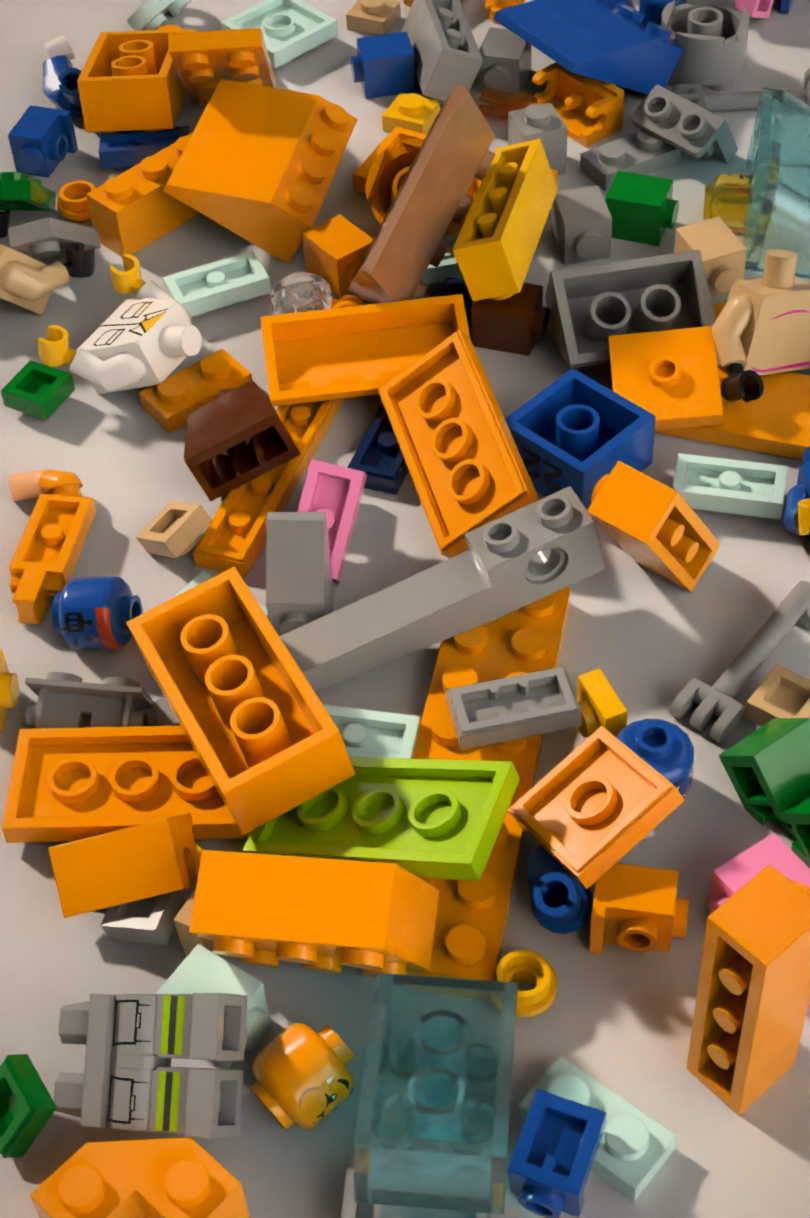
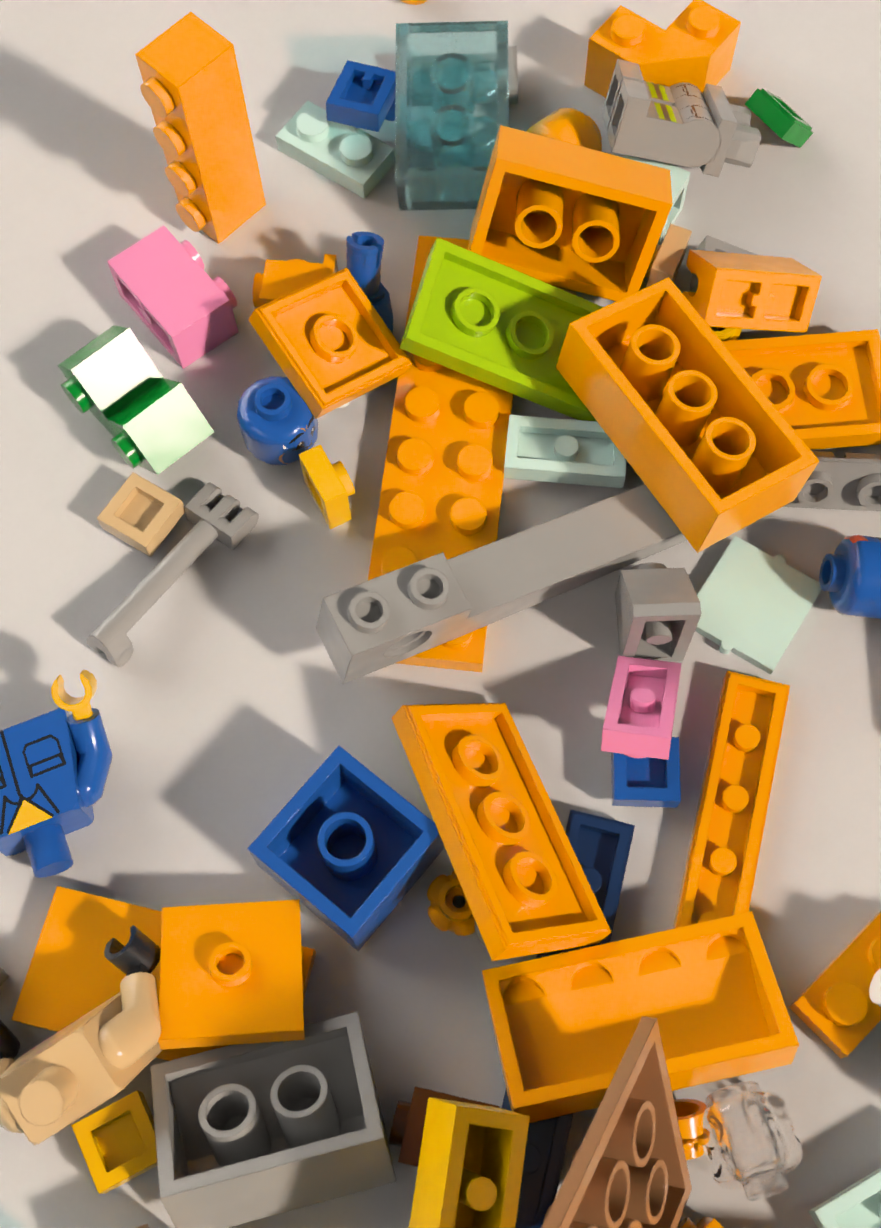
camera: 175 degrees right, 20 degrees up
(175, 529) = (820, 709): tan plate -> none
(235, 440) = (780, 843): reddish brown torso -> none
(513, 708) = (410, 453): light grey plate -> none
(532, 969) = (400, 230): yellow plate -> none
(653, 525) = (258, 646): light orange brick -> none
(731, 485) = (167, 815): light aqua plate -> none

